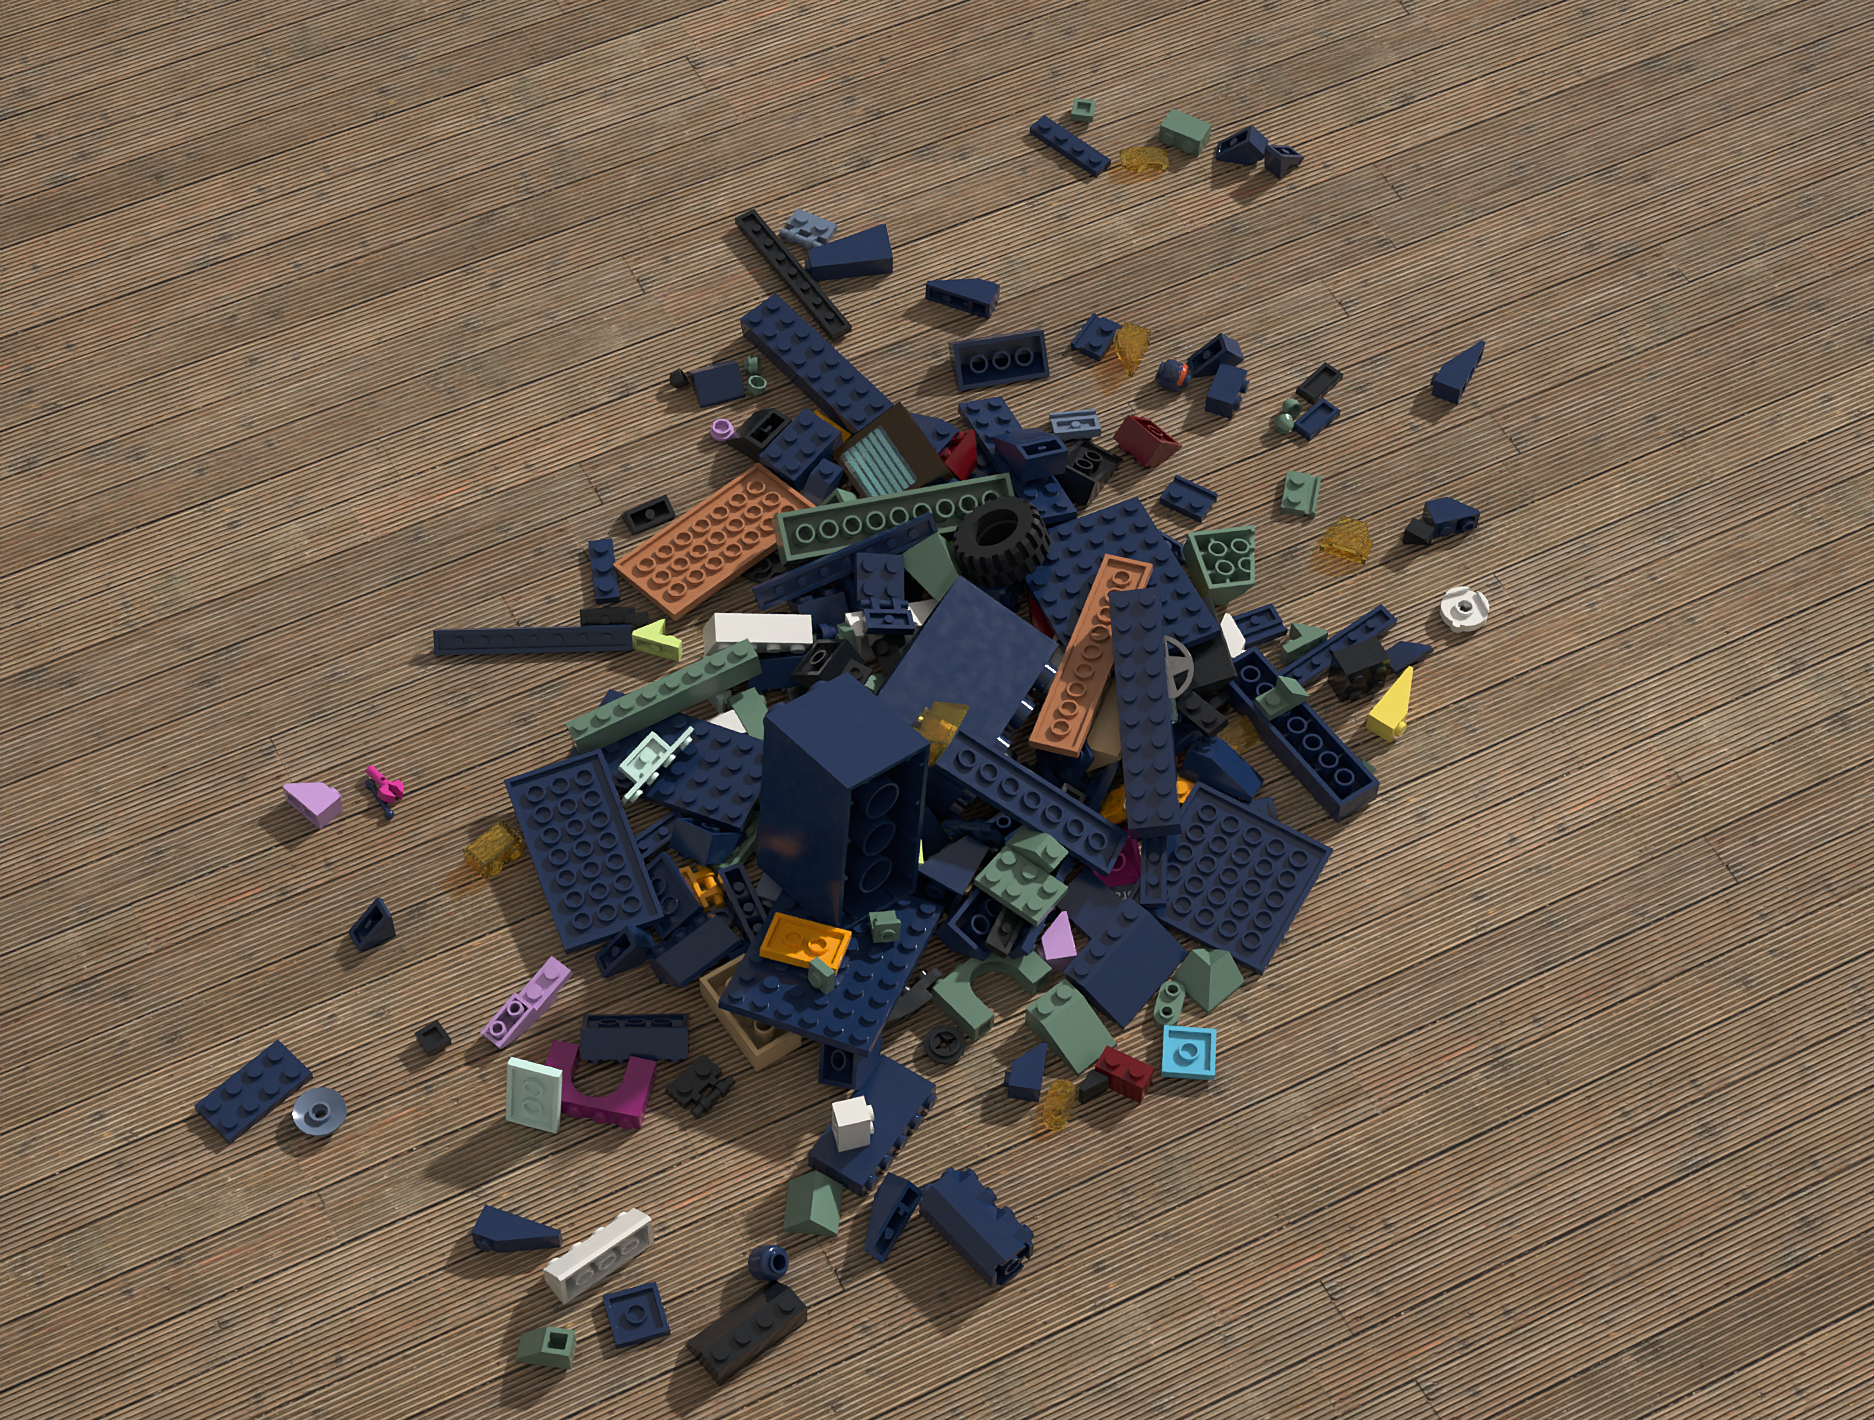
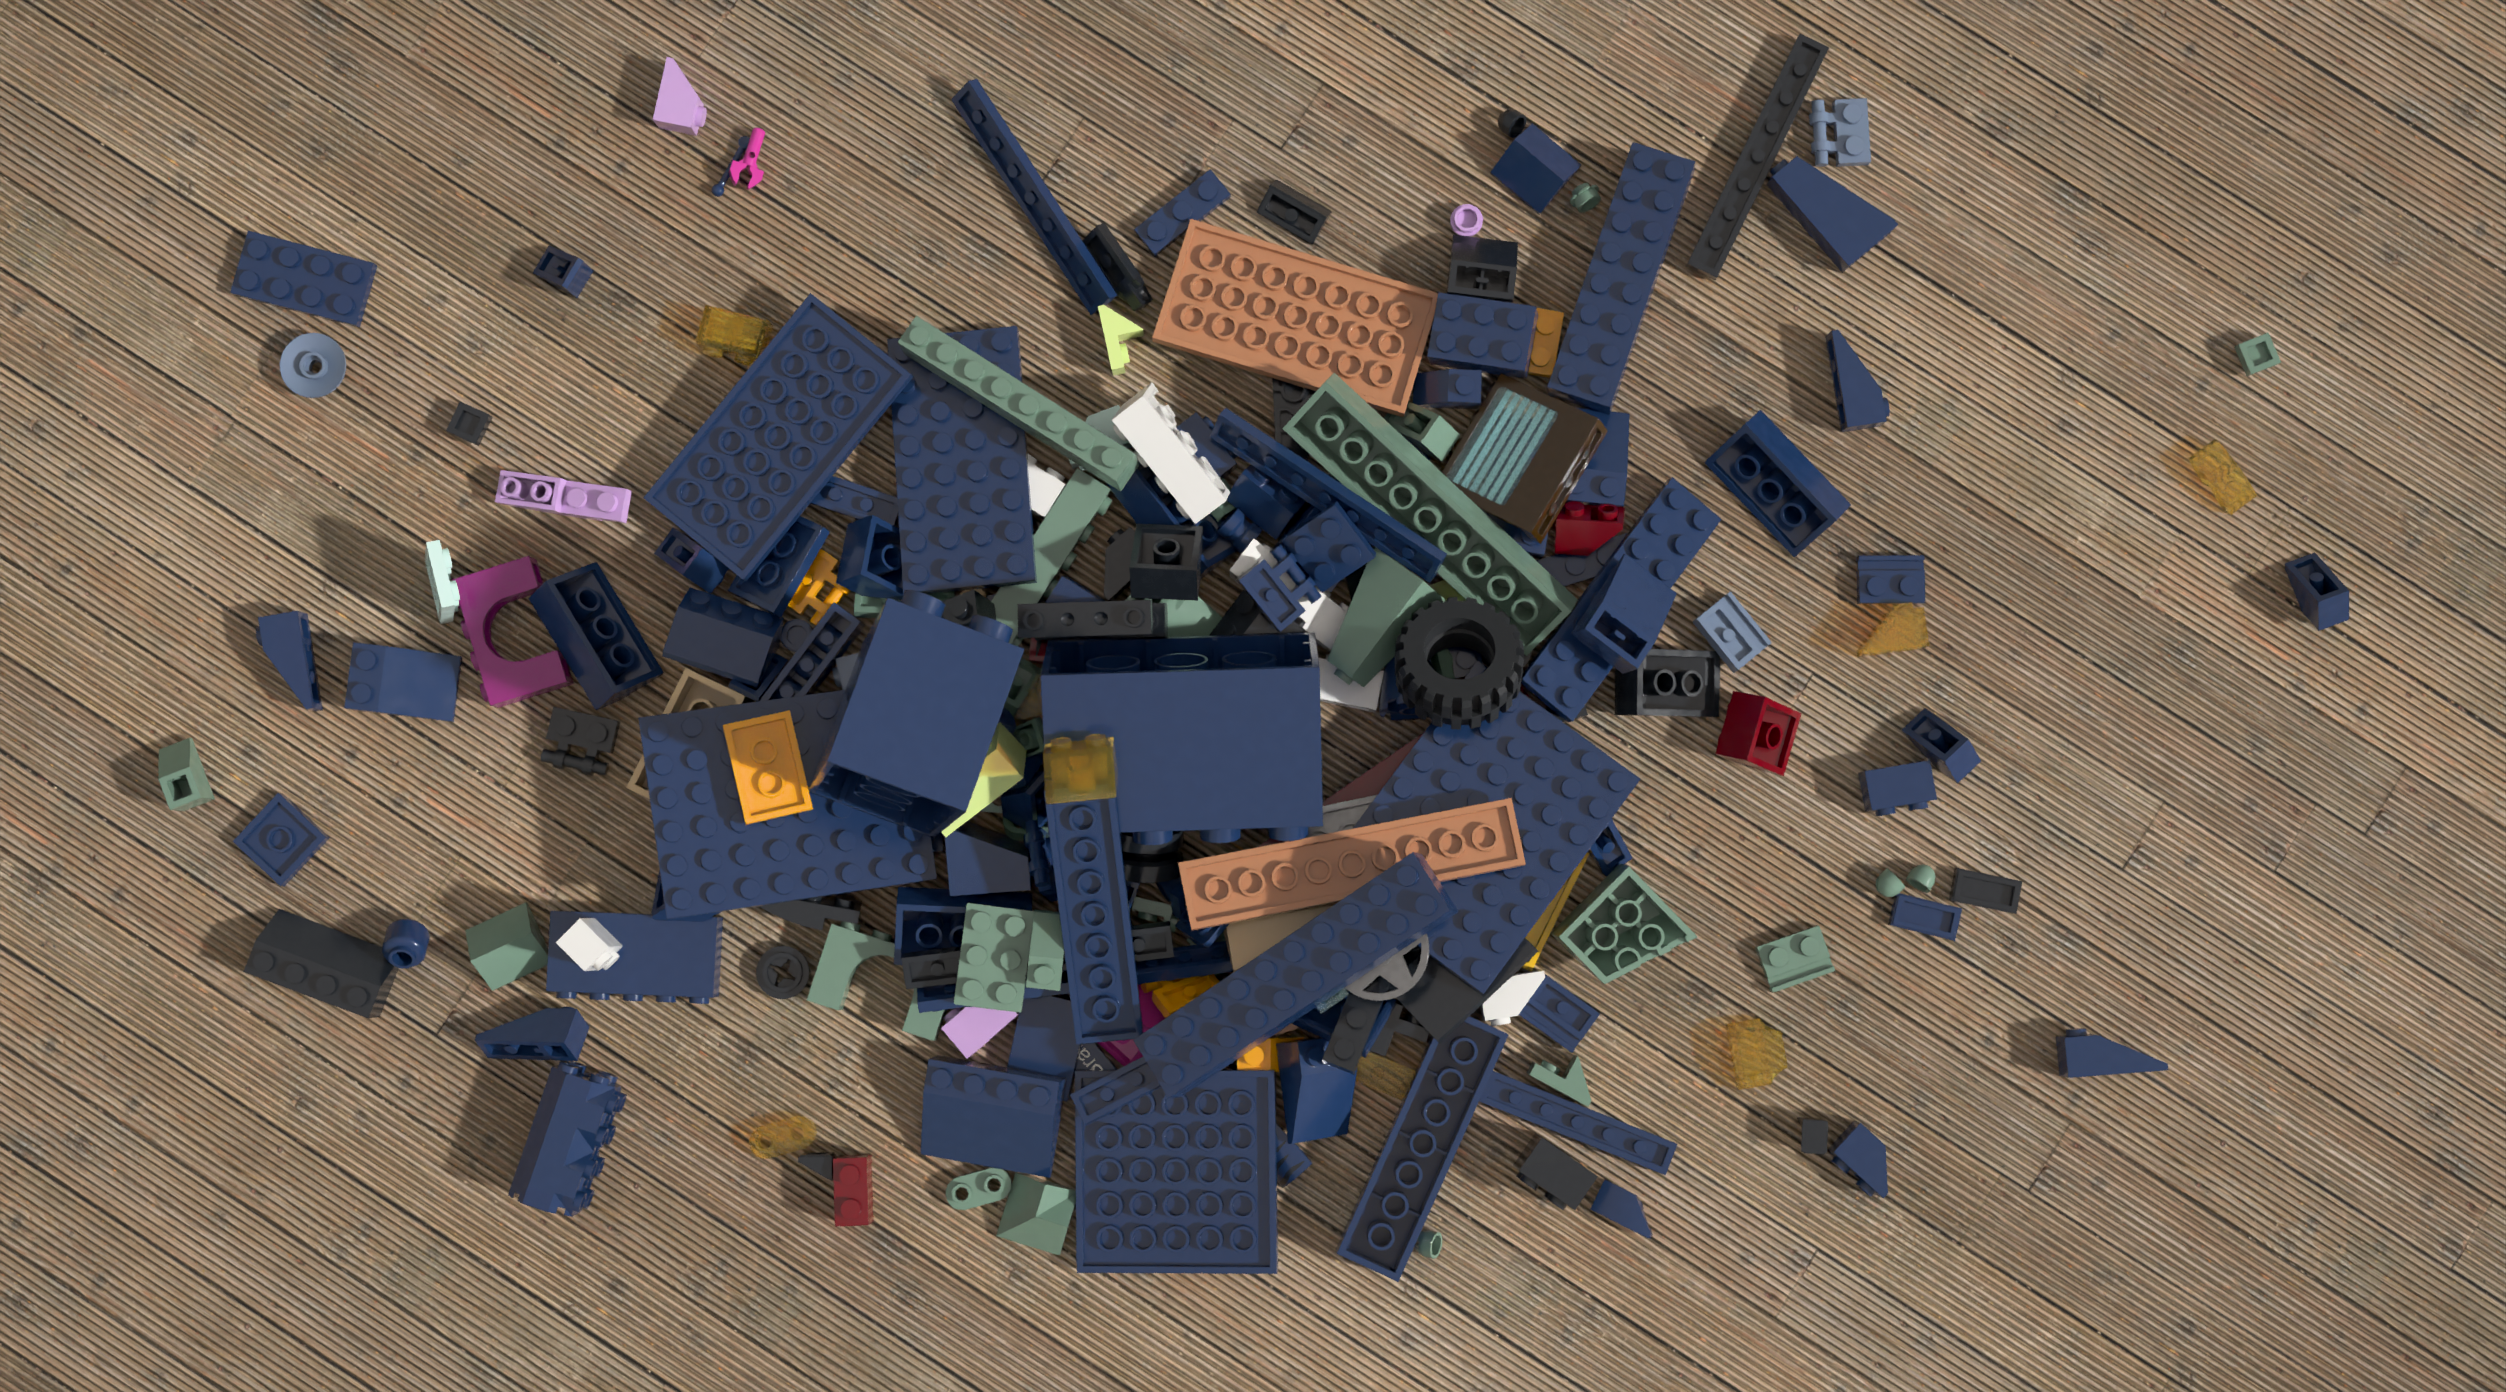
camera: 60 degrees right, 30 degrees up
(580, 1174) = (403, 682): none -> dark blue slope
(599, 1255) = (313, 760): white slope -> none
(647, 759) = (926, 437): light aqua bracket -> none
(756, 385) = (1563, 222): sand green hinge -> none
(821, 975) = (725, 812): sand green plate -> none
(845, 631) = (1229, 555): sand green plate -> none
(884, 926) = (851, 836): sand green bracket -> none
(1026, 1075) = (793, 1084): dark blue slope -> none
(1069, 1027) = (880, 1098): sand green slope -> none
(1070, 146) = (2187, 371): dark blue plate -> none
(1173, 375) = (1880, 708): dark blue head -> none
(1185, 132) = (2298, 504): sand green brick -> none
(1188, 498) = (1705, 828): dark blue plate -> none
(1188, 1052) = (926, 1244): medium azure plate -> none
(1279, 157) = (2332, 651): dark blue slope -> none
(1282, 698) = (1446, 1109): sand green slope -> none
(1390, 713) = (1530, 1236): light yellow slope -> none
(1460, 620) = (1753, 1244): white plate -> none

